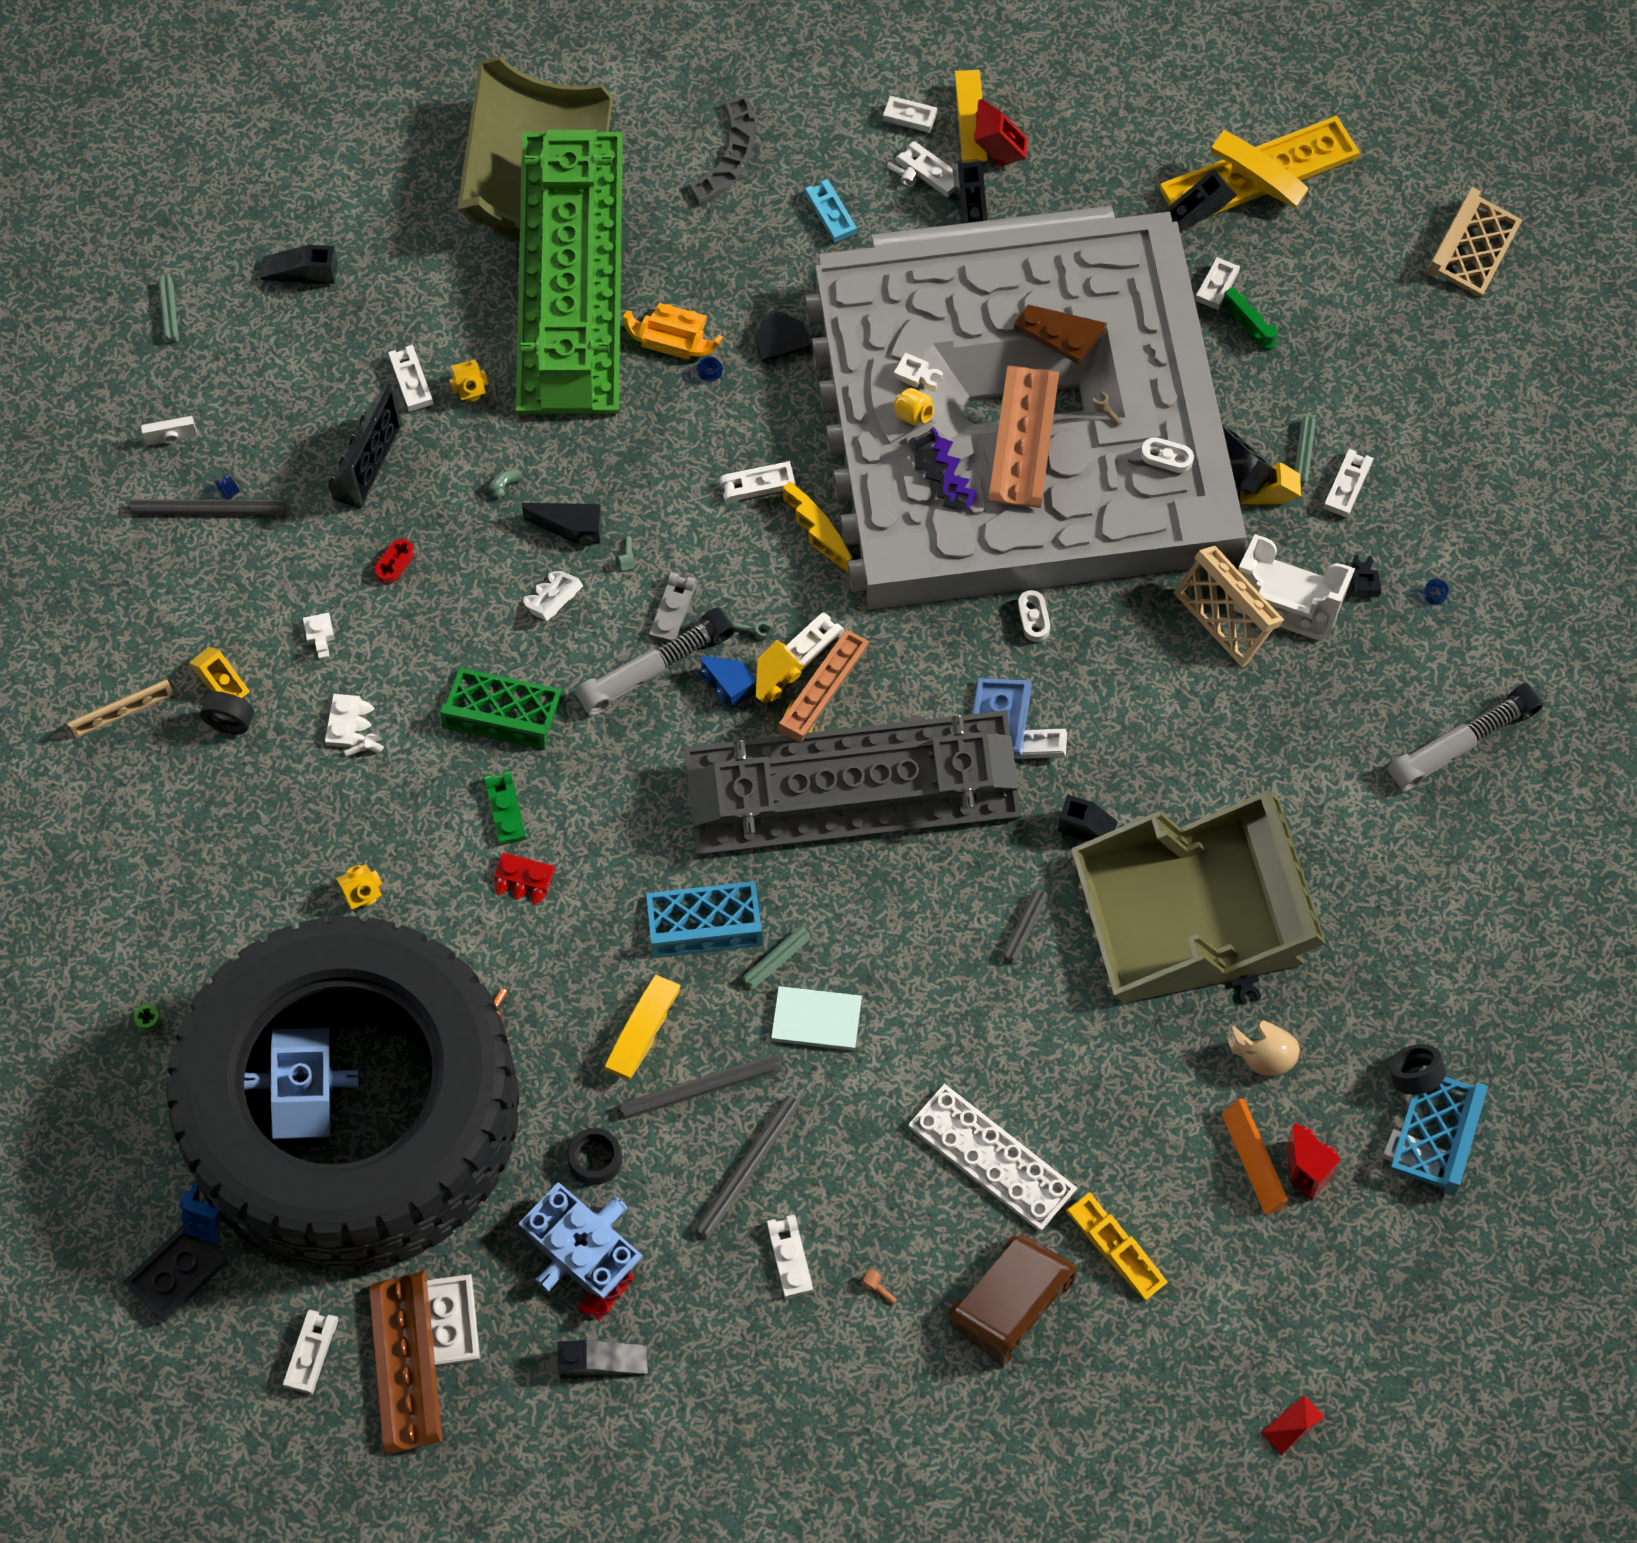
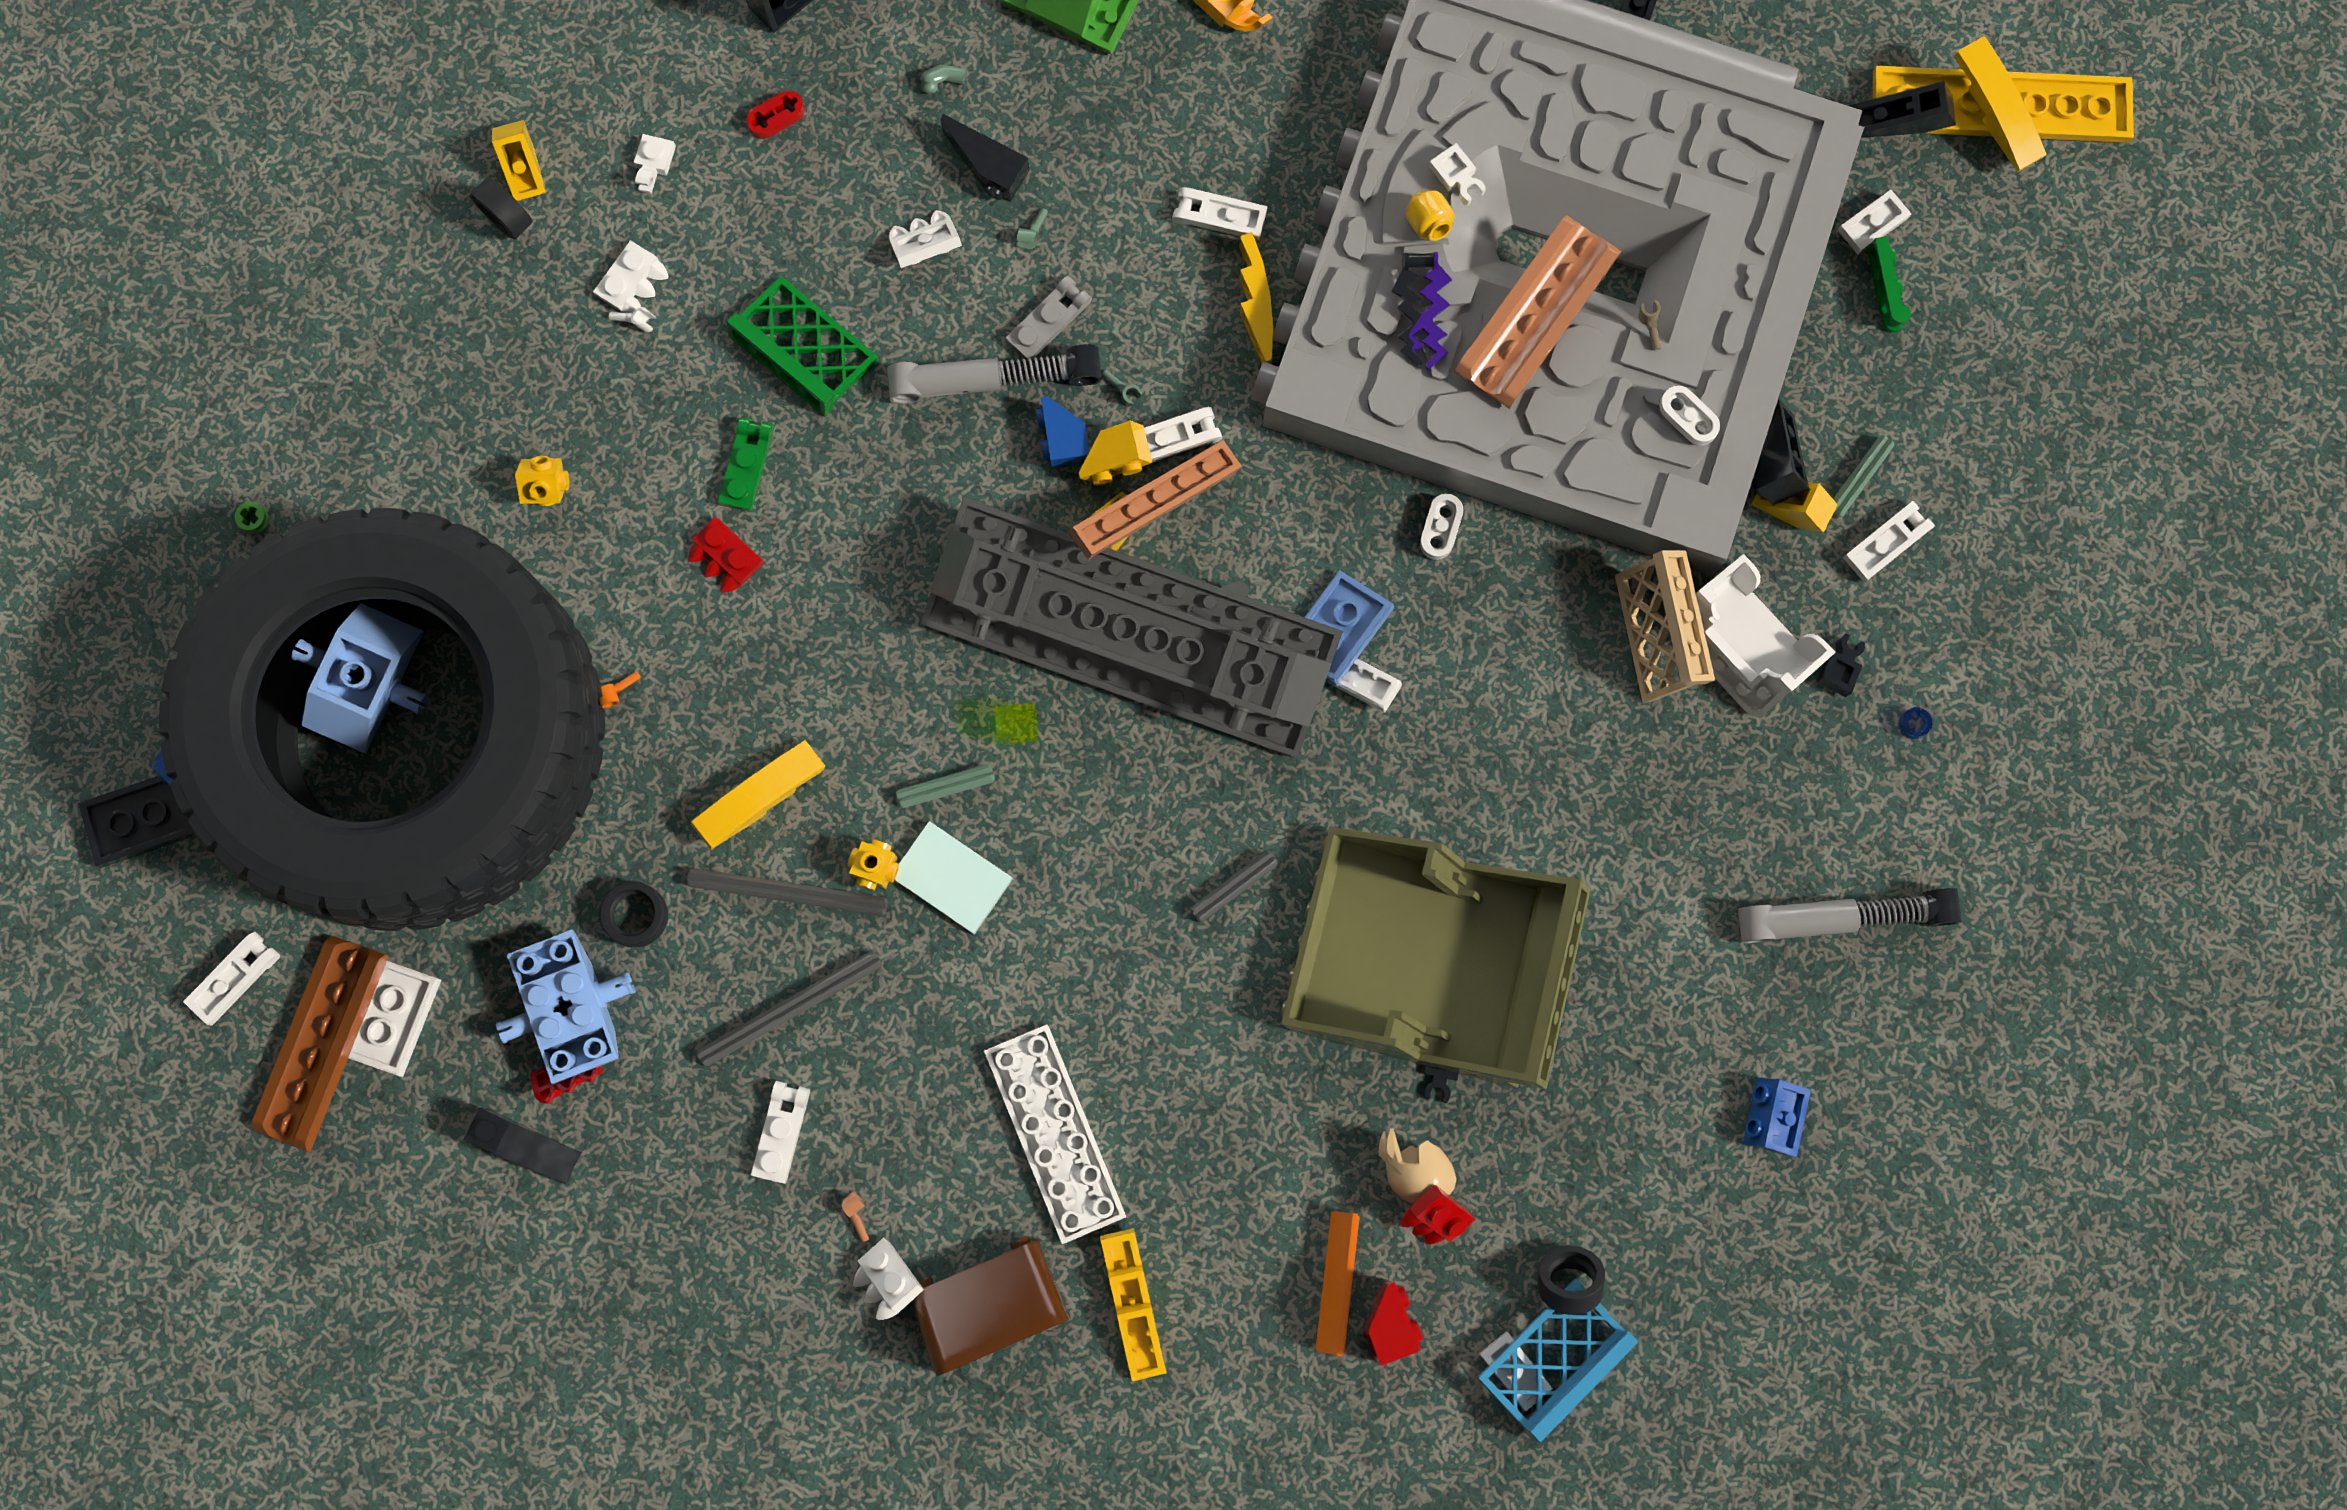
camera: 25 degrees right, 15 degrees up
(120, 708) = (398, 145): tan slope -> none
(706, 936) = (874, 723): dark azure fence -> none
(710, 362) = (1244, 42): clear blue plate -> none
(756, 1033) = (882, 873): none -> yellow brick
(780, 335) = (1339, 45): black slope -> none
(804, 889) = (1016, 723): none -> clear neon green panel
(927, 1315) = (889, 1280): none -> white plate
(1061, 332) = (1651, 201): reddish brown wing -> none
(1084, 819) = (1365, 802): black slope -> none
(1299, 1072) = (1437, 1217): none -> red plate
(1453, 239) = (2195, 290): tan fence -> none
(1494, 893) = (1776, 1116): none -> blue bracket

